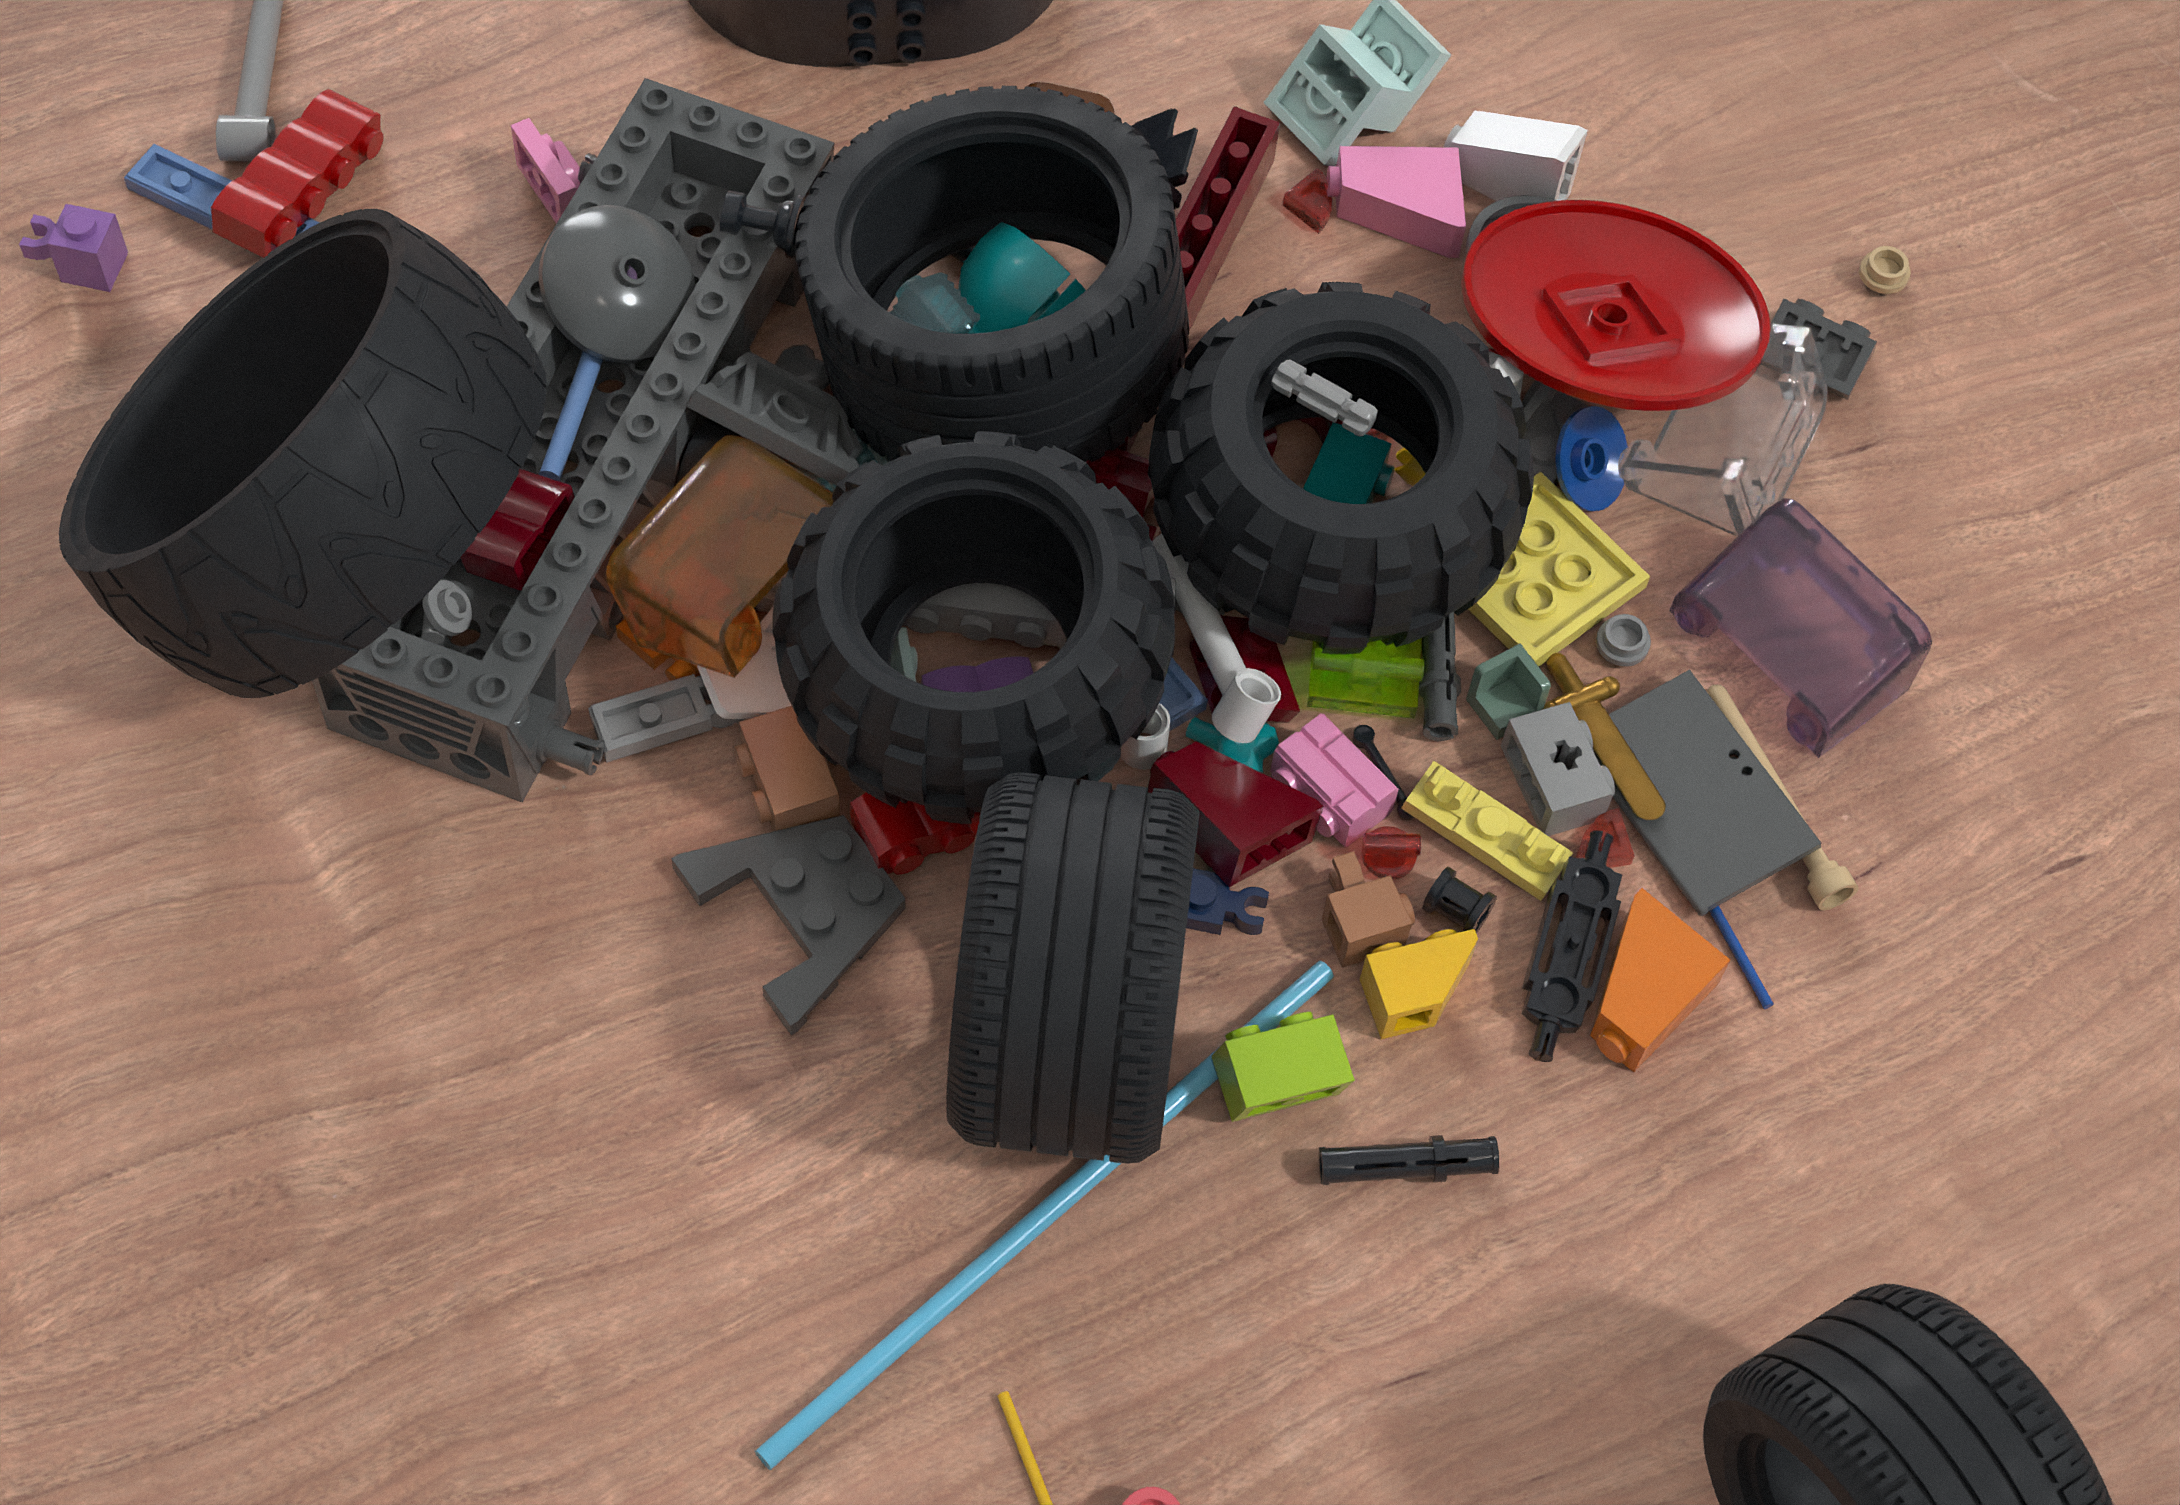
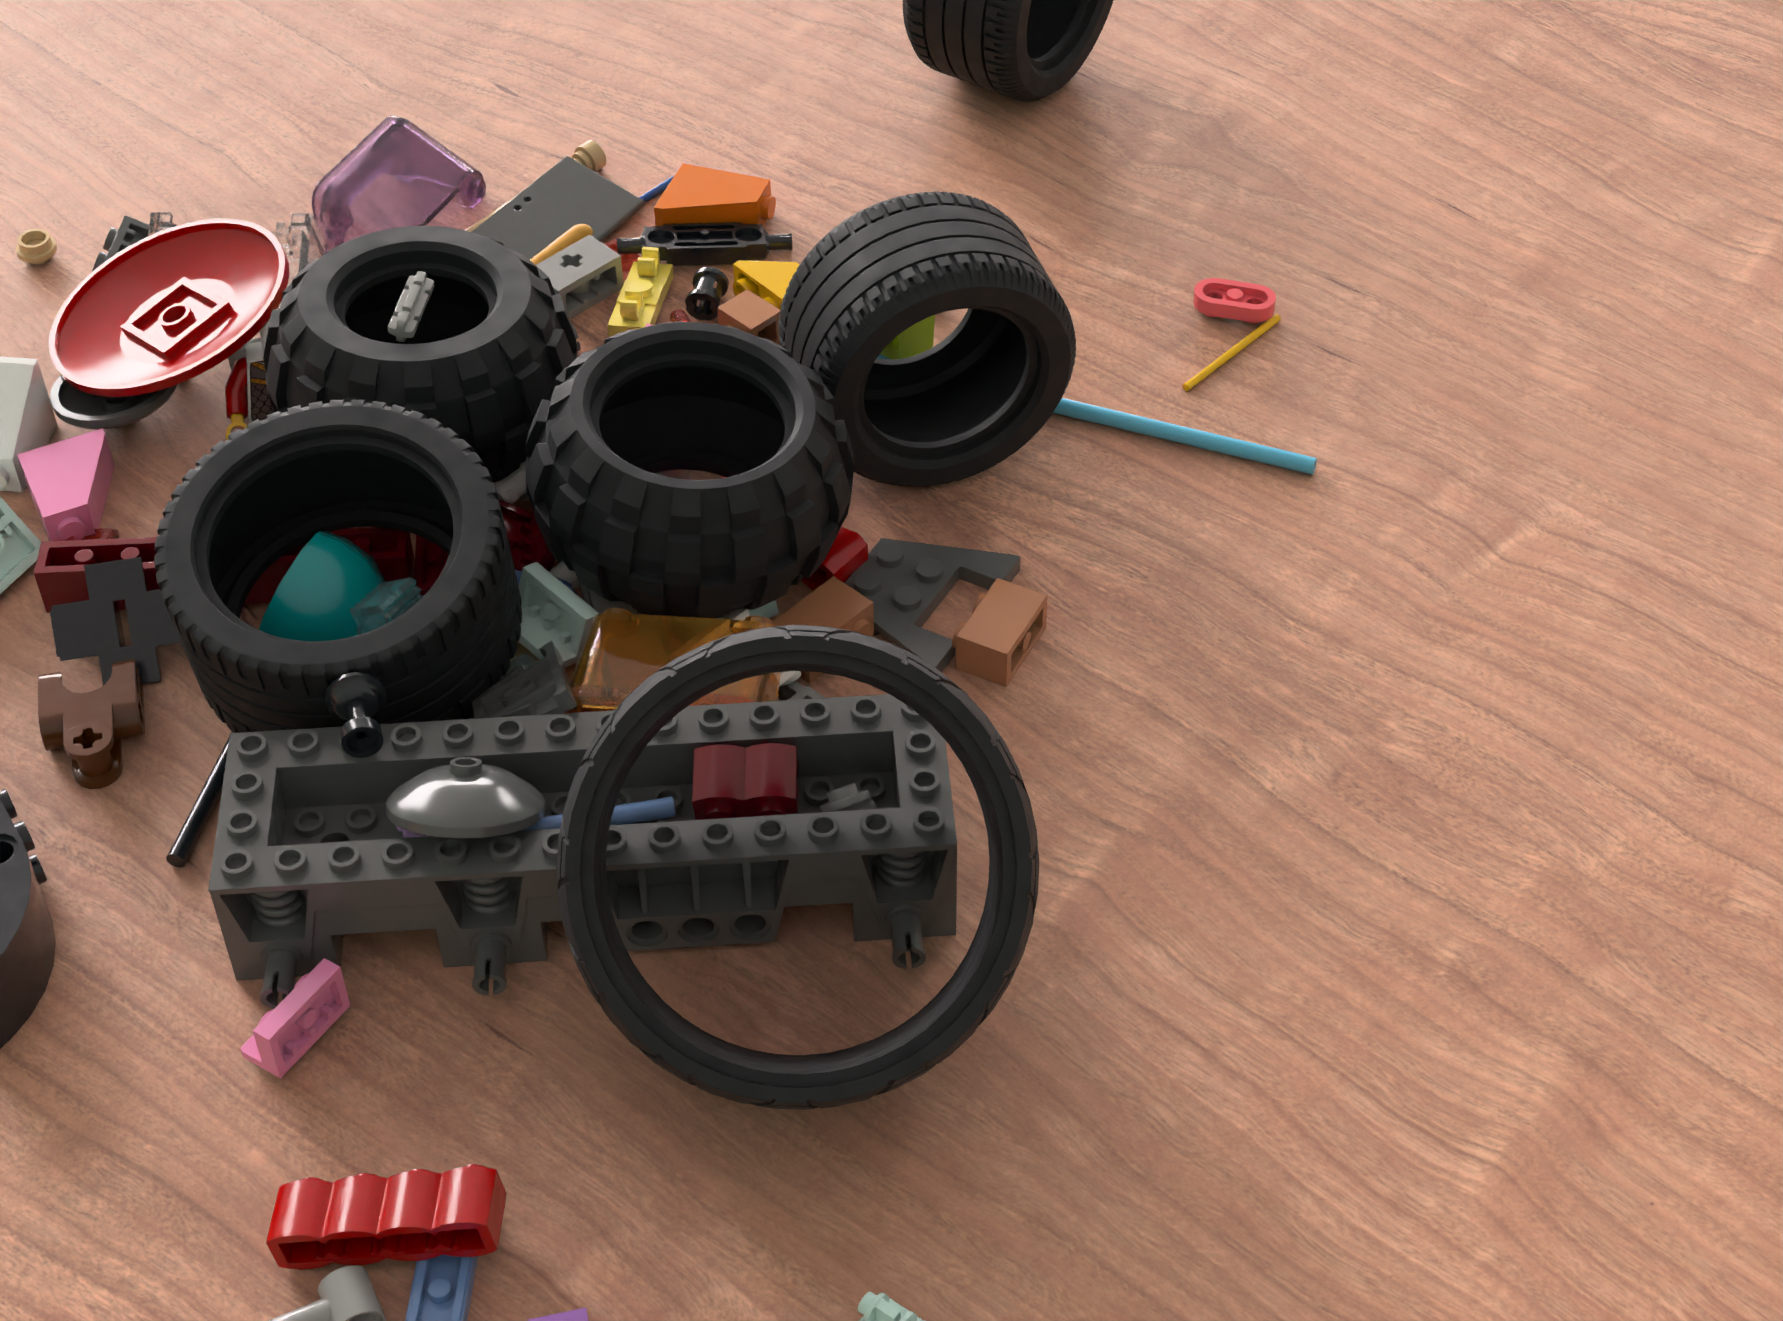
camera: 110 degrees left, 15 degrees down
(680, 941) = (1000, 631): none -> nougat brick

